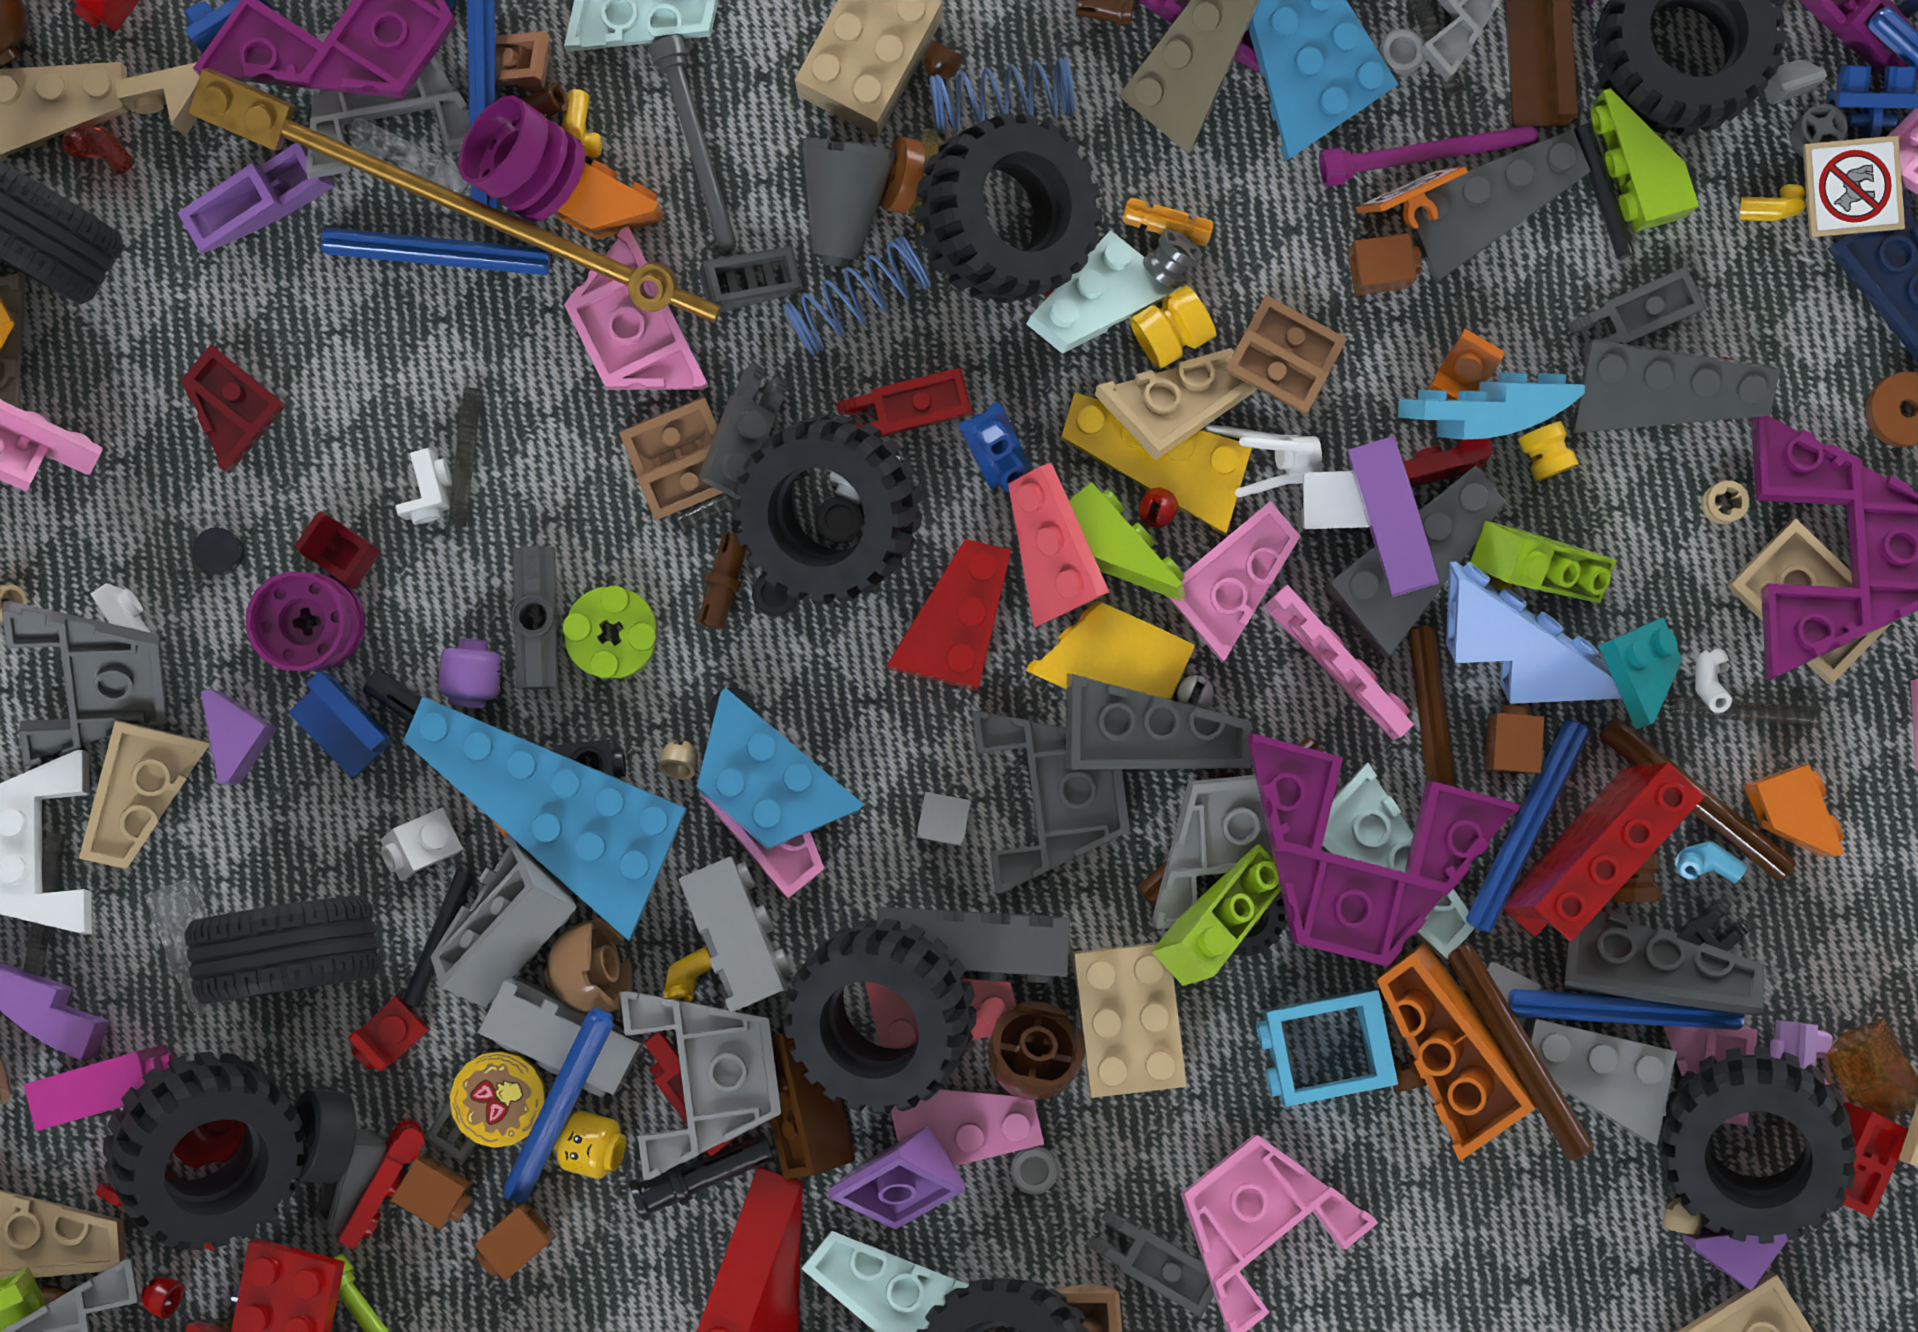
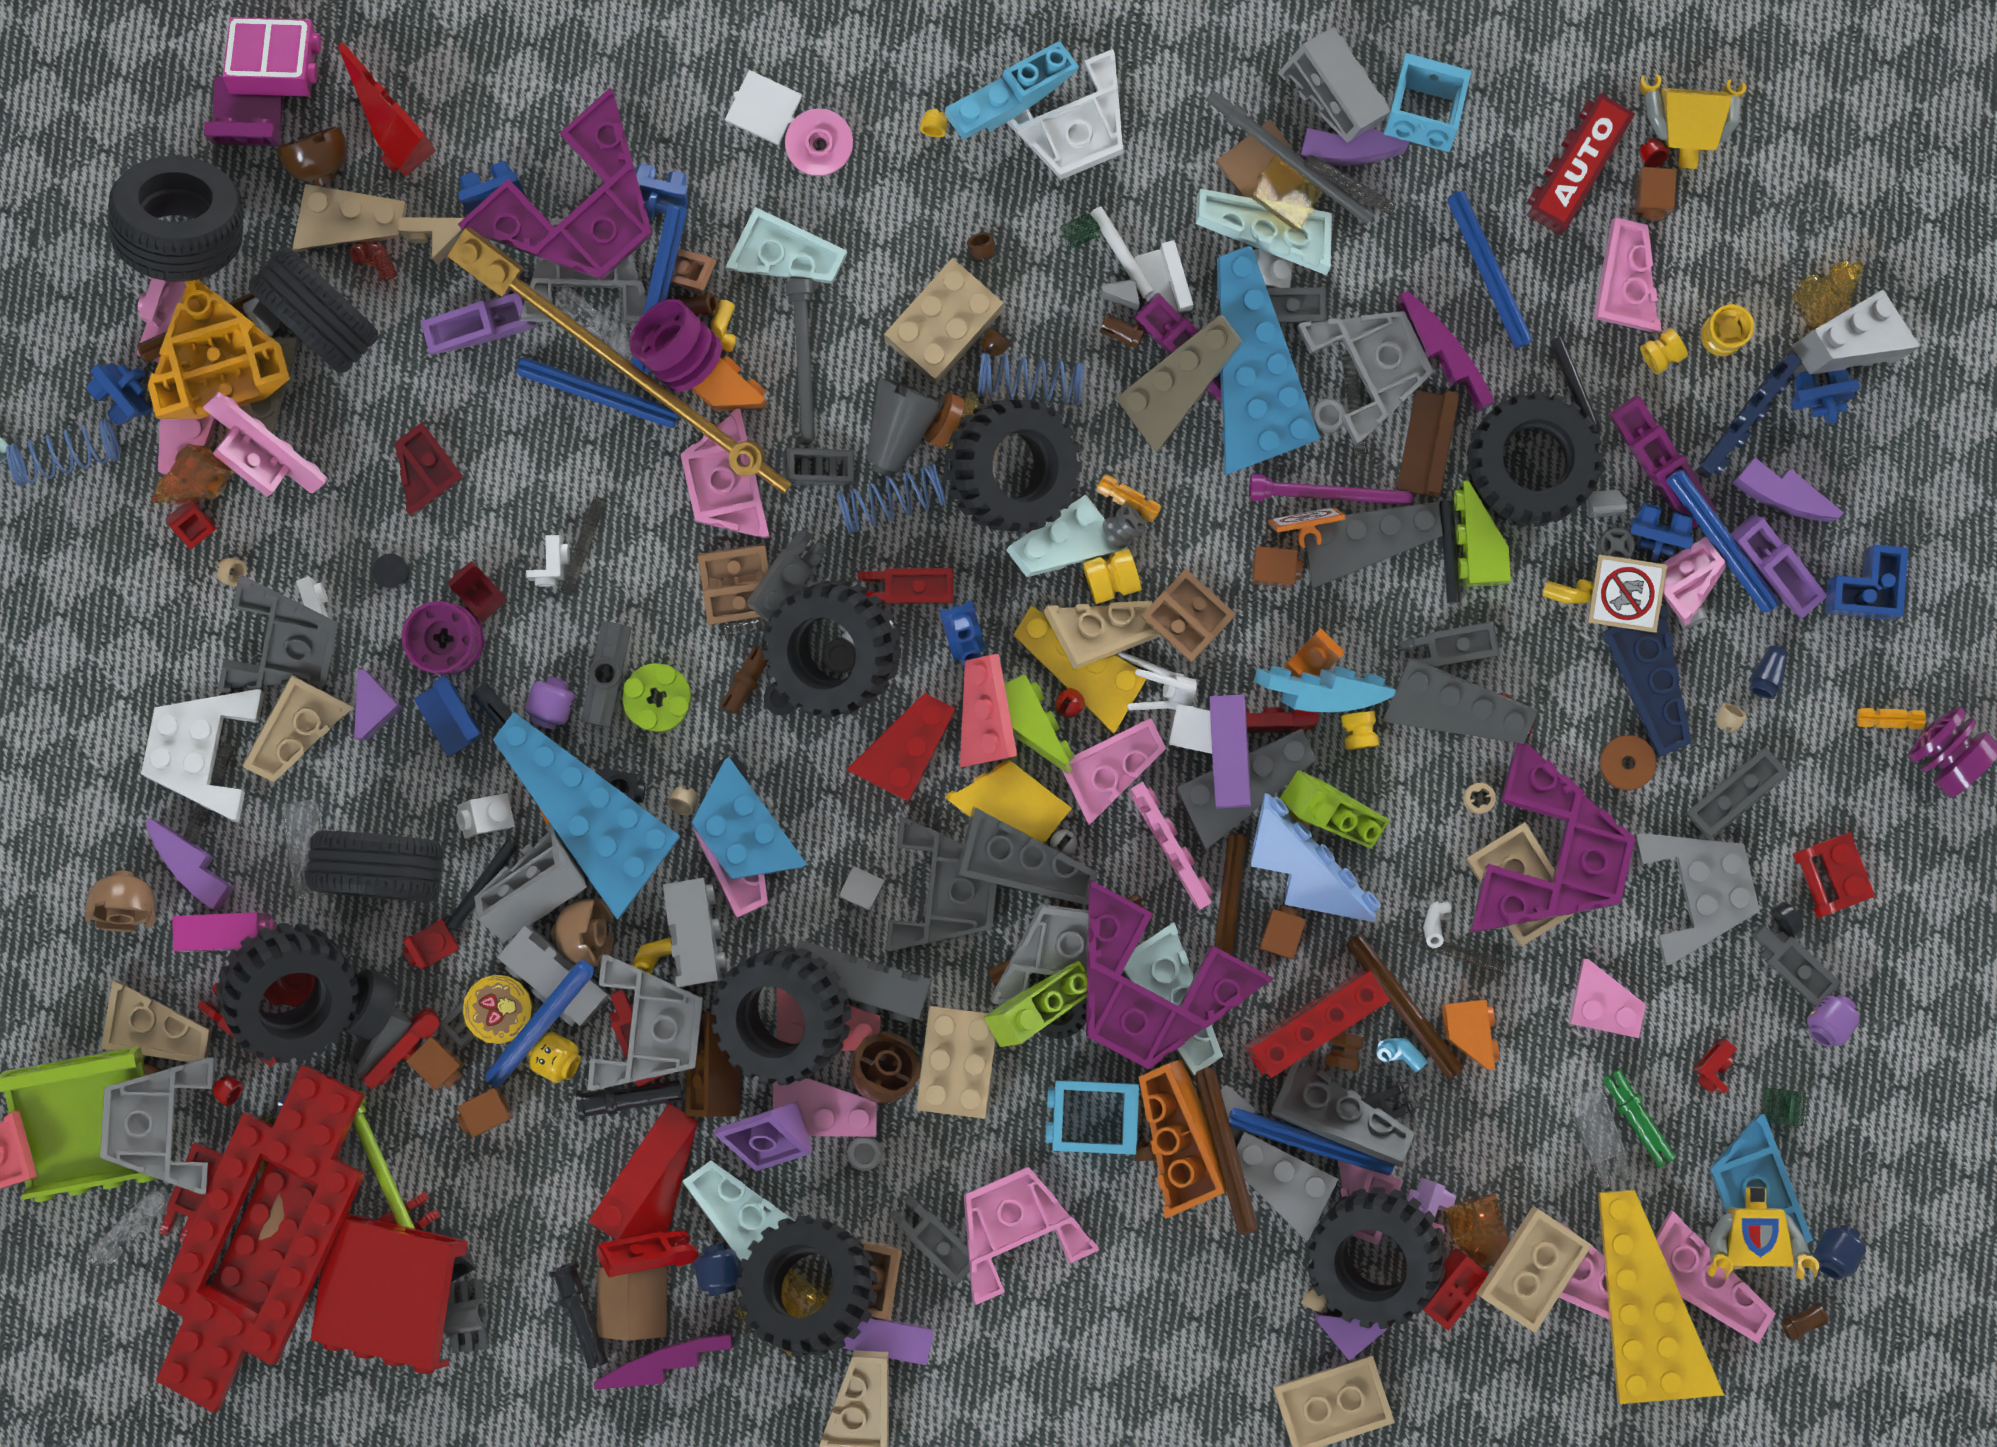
camera: 15 degrees right, 0 degrees up
(1528, 825) = (1276, 995): blue axle -> none
(1643, 668) = (1386, 902): teal wing -> none

